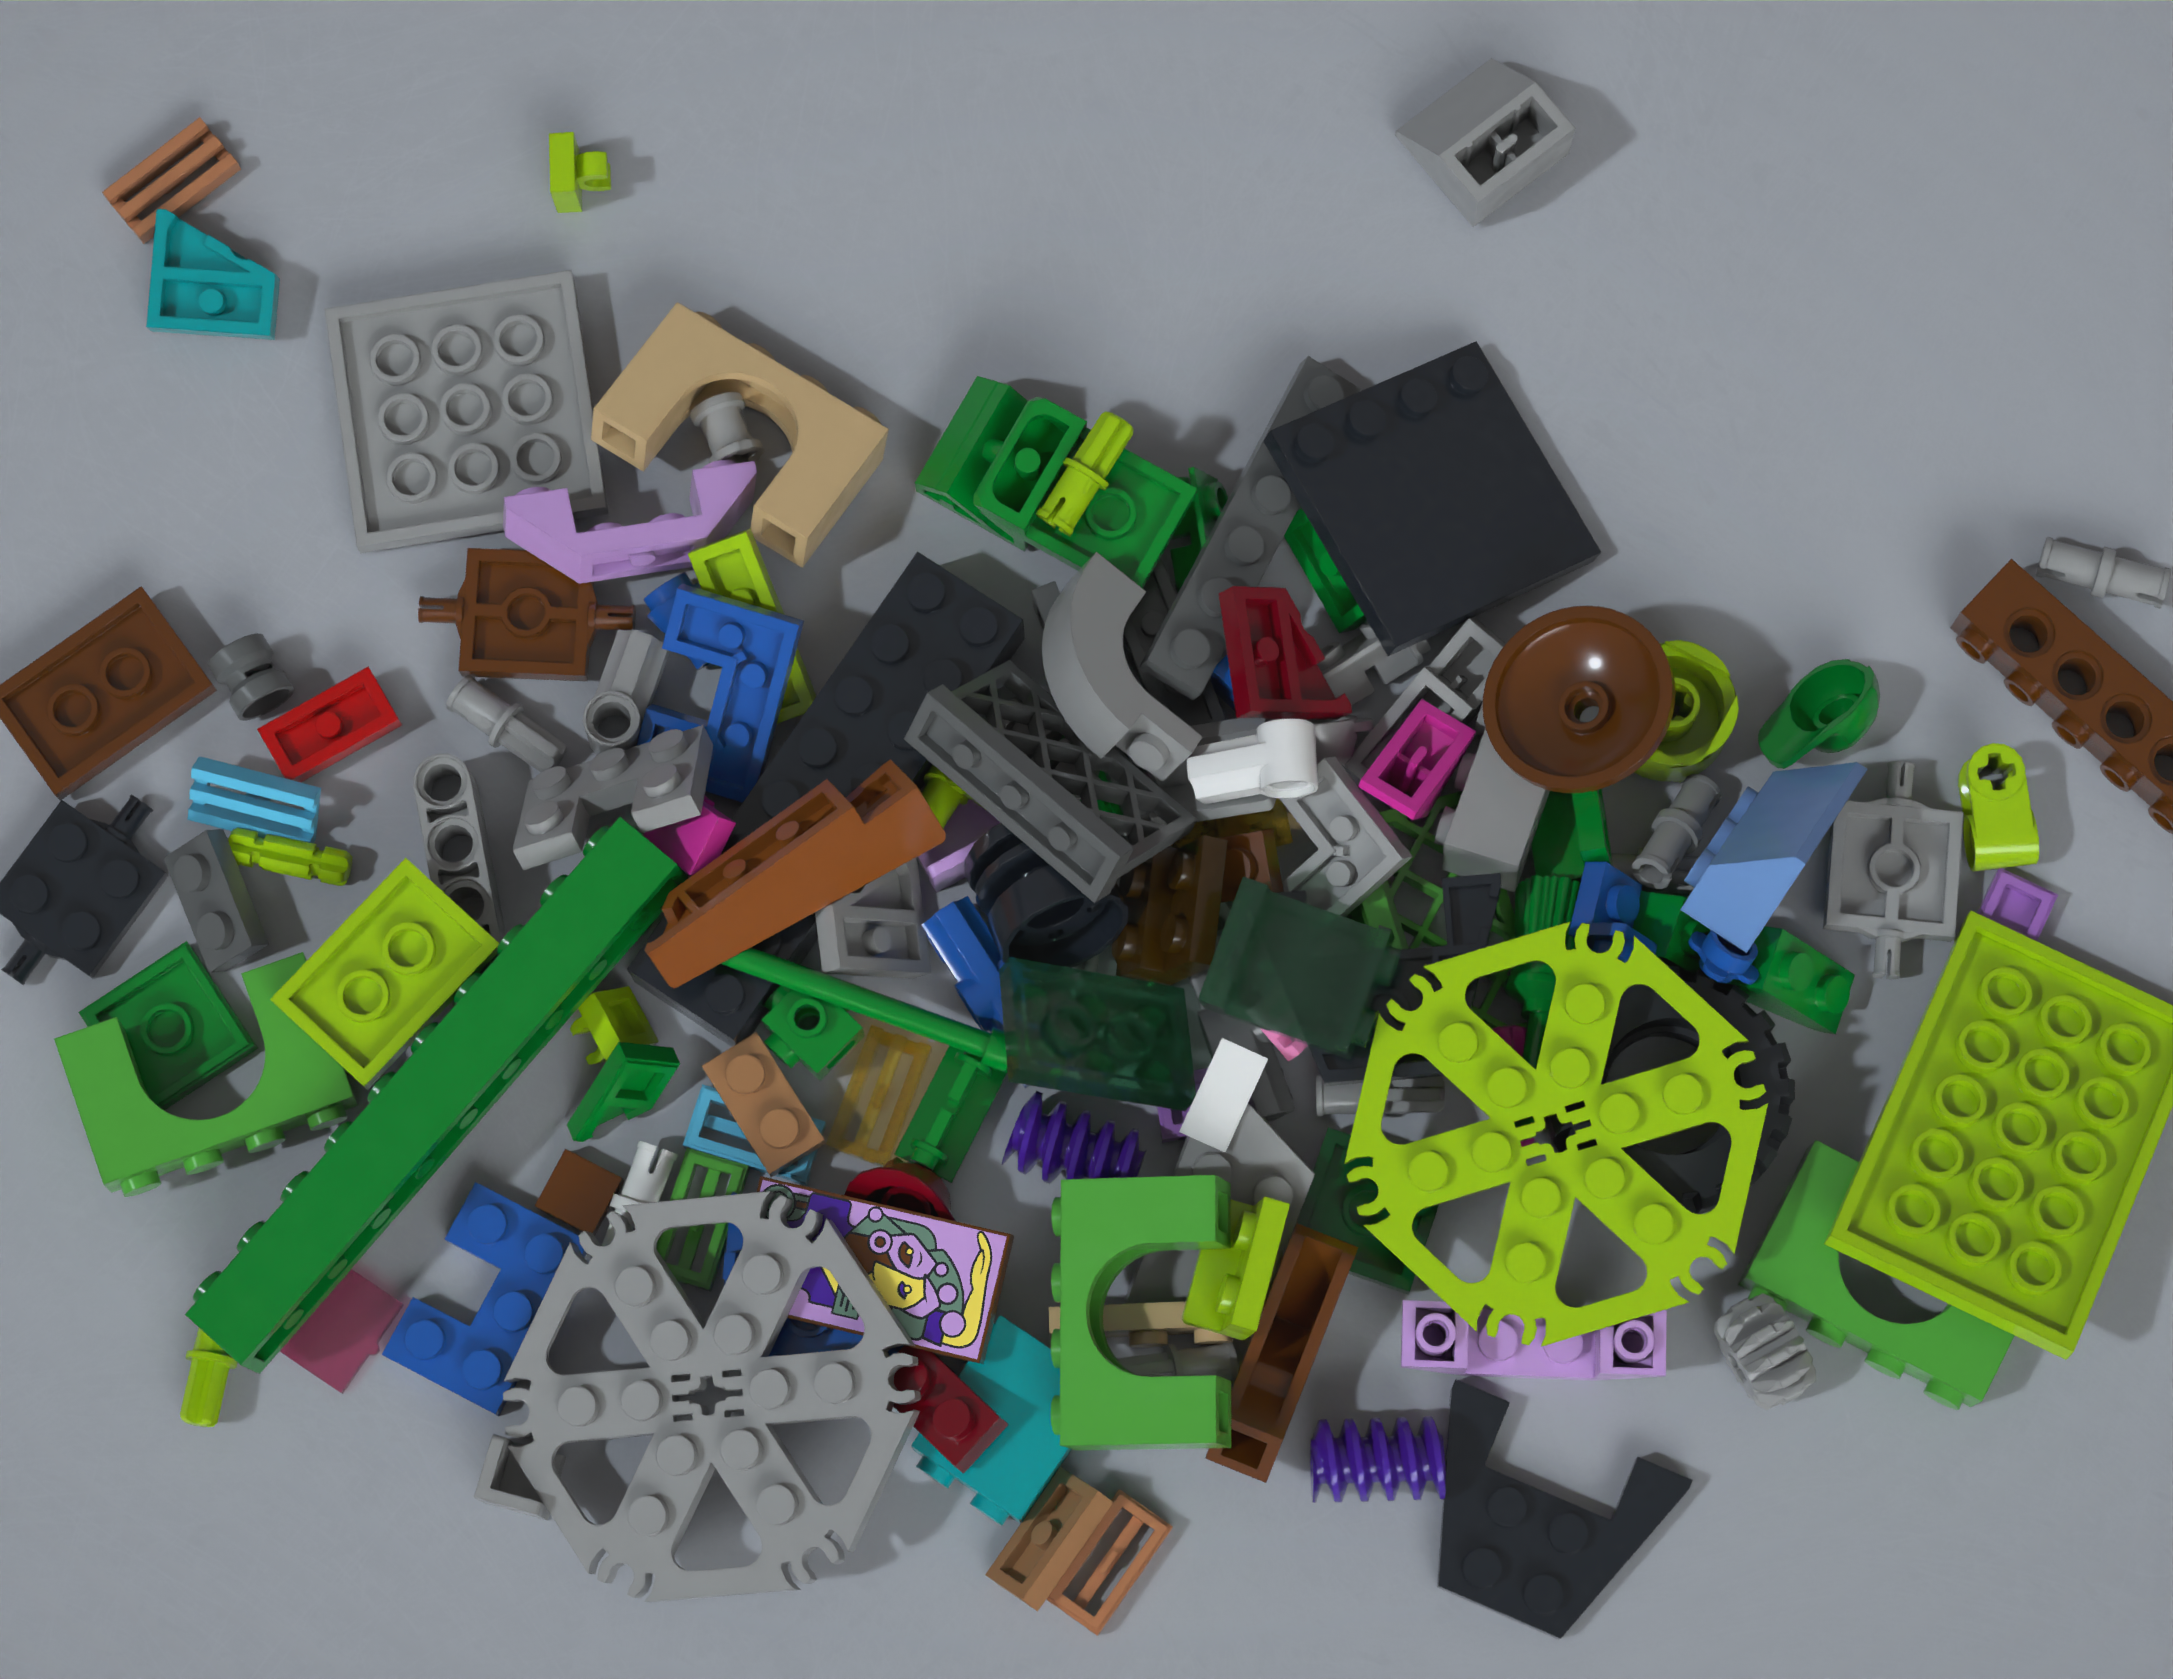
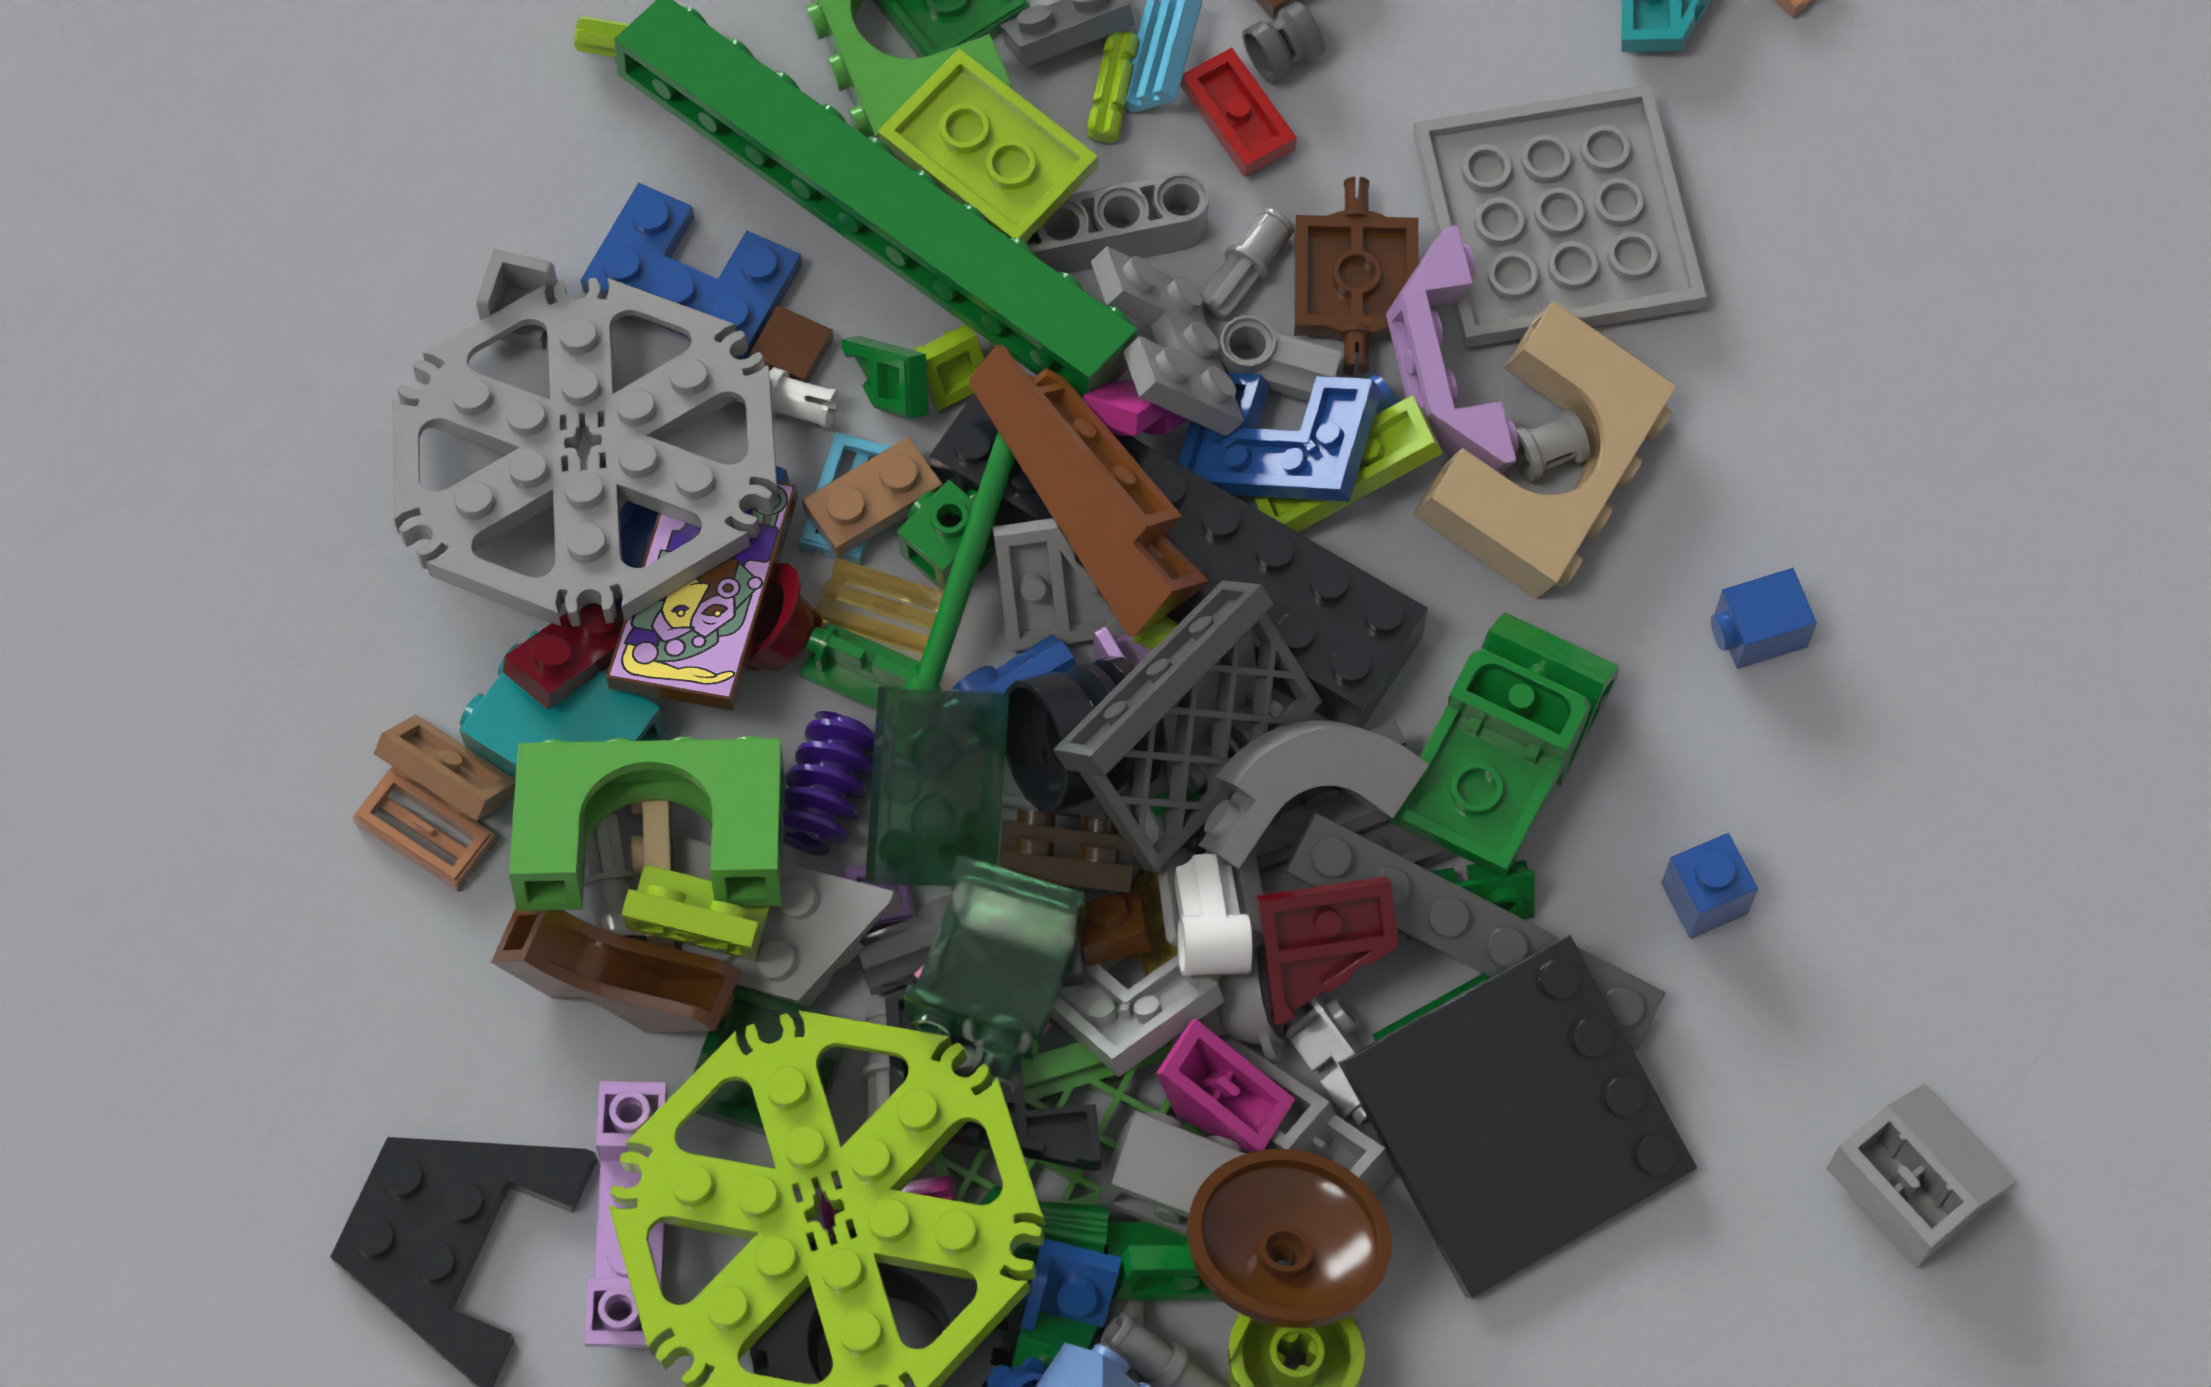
camera: 85 degrees right, 10 degrees down
(343, 1331) = (666, 153): clear pink piece -> none
(575, 171) = (1809, 295): lime tile -> none
(716, 1166) = (783, 433): bright green tile -> none
(922, 241) = (1763, 618): none -> blue brick
(1086, 472) = (1511, 752): lime axle -> none
(1200, 309) = (1709, 885): none -> blue brick
(1223, 1095) = (872, 901): white sticker -> none
(1377, 1459) = (509, 1071): dark purple piece -> none

